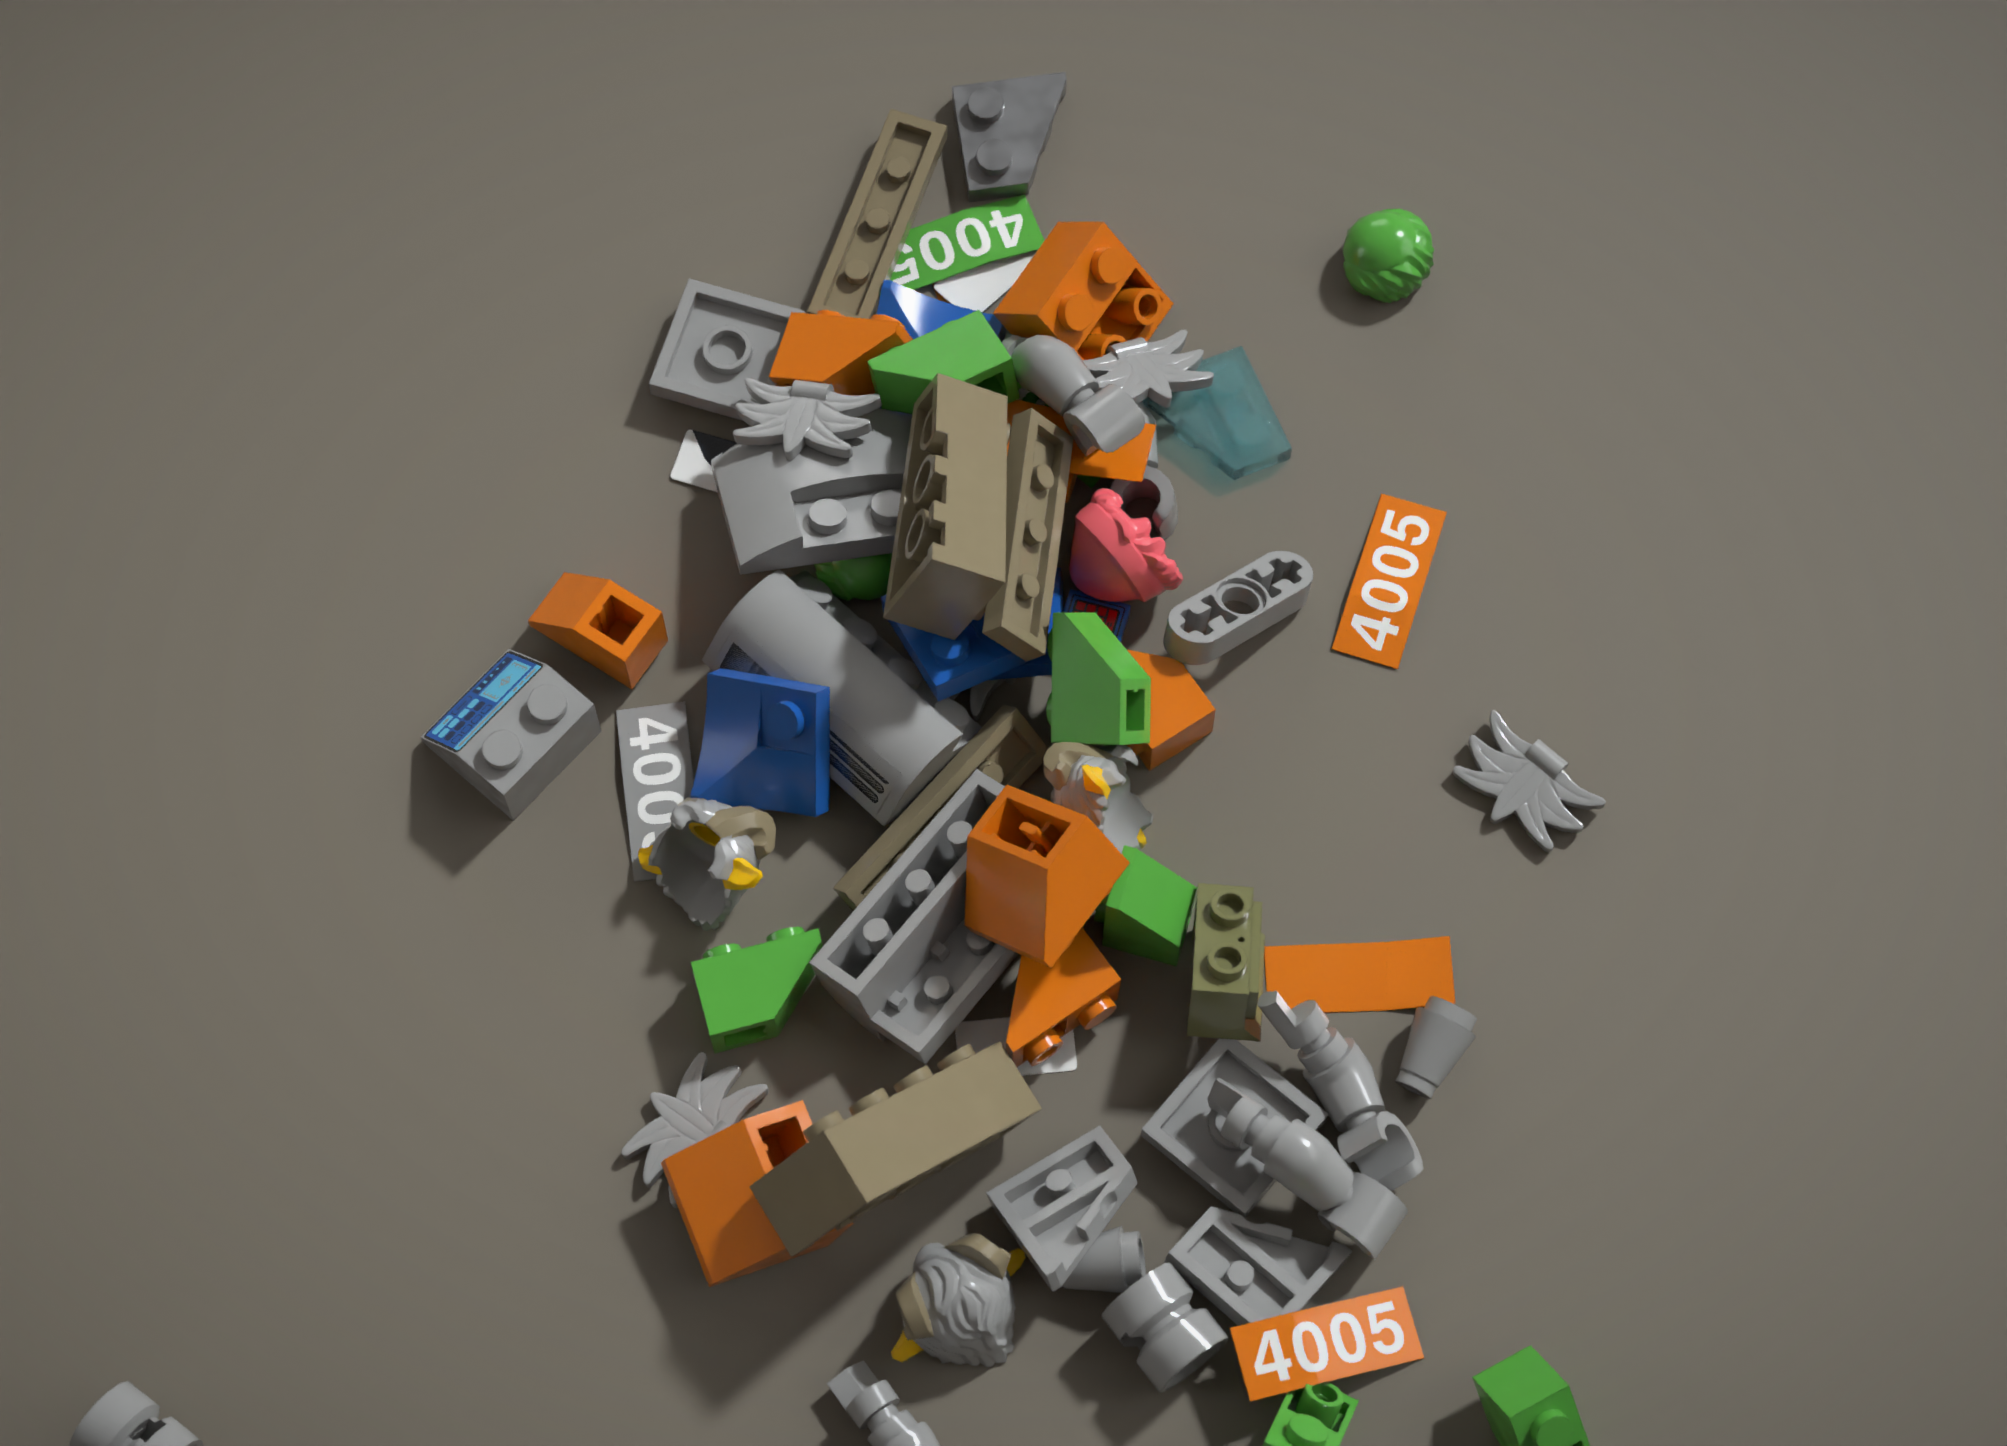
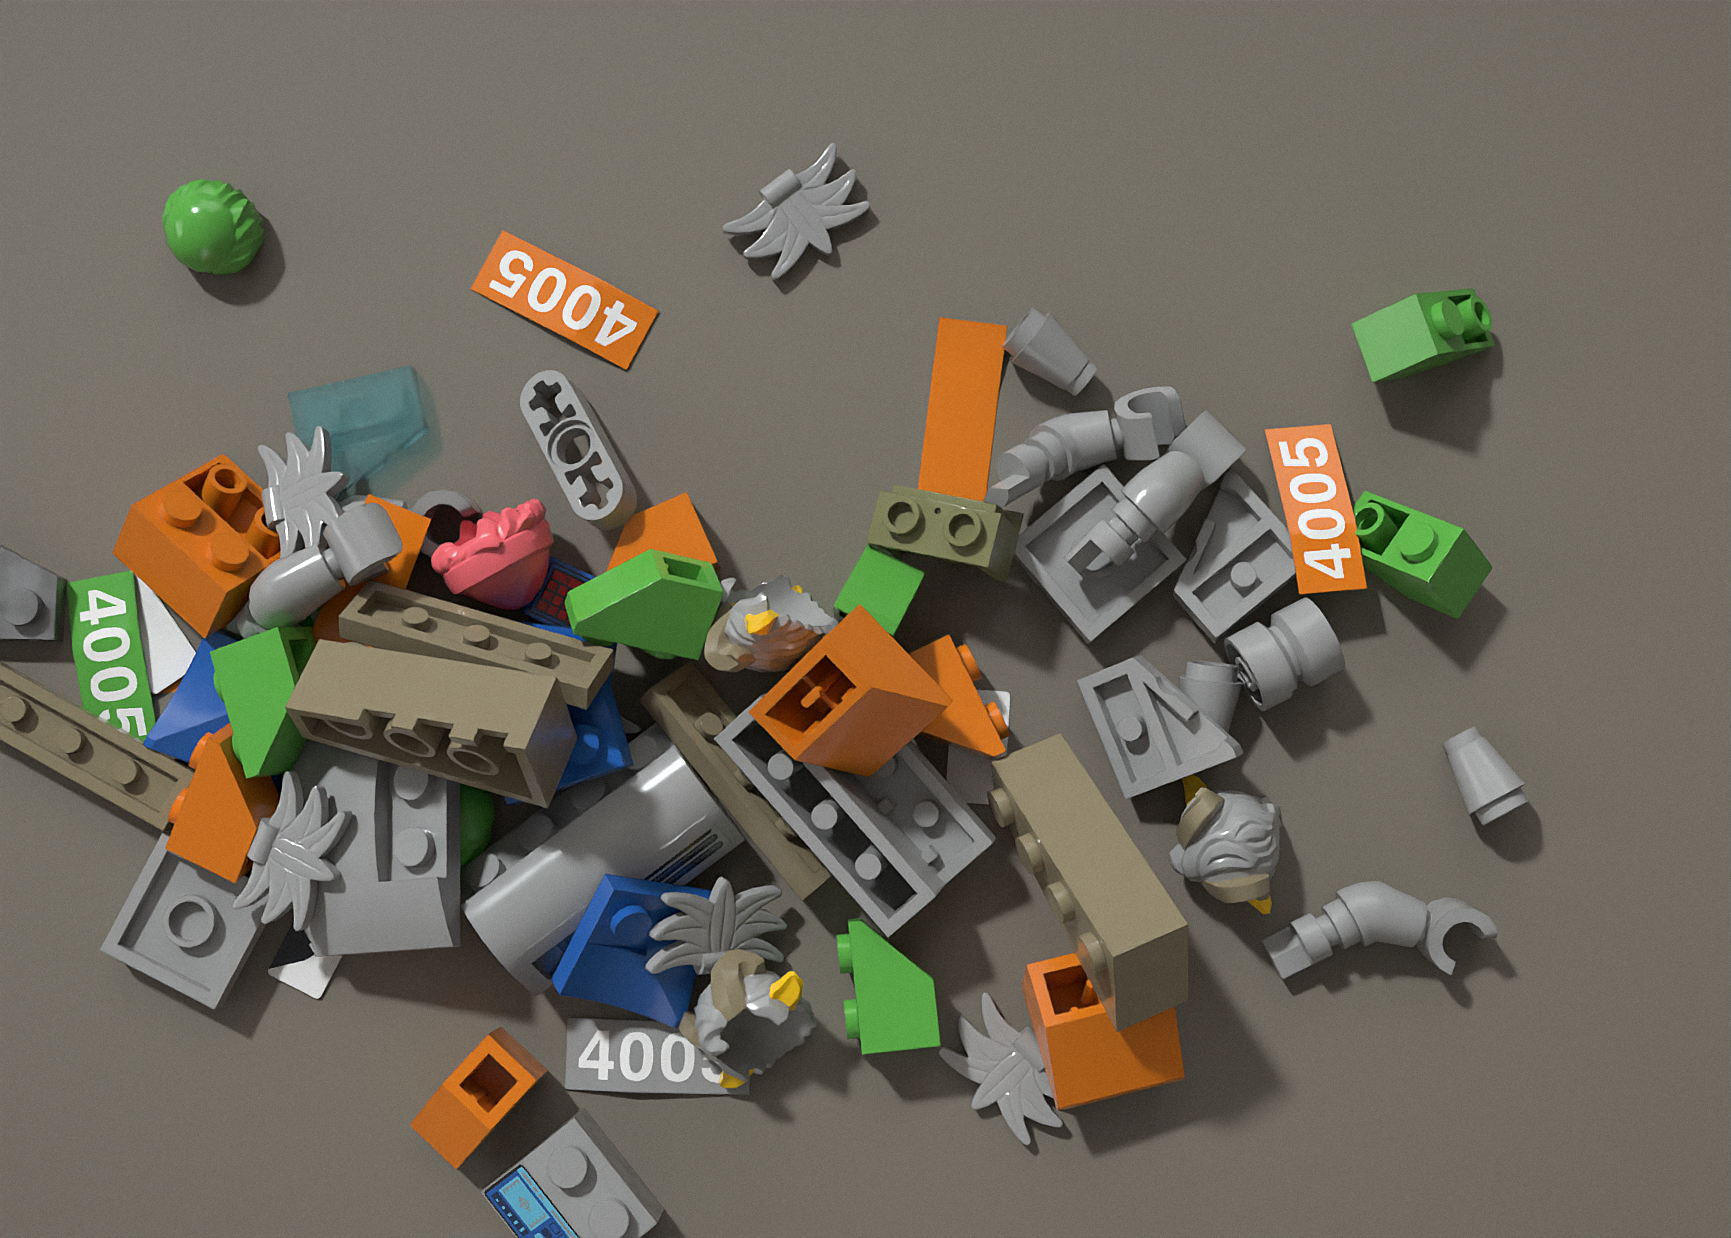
camera: 85 degrees left, 15 degrees up
(797, 810) = (715, 926): none -> light grey piece

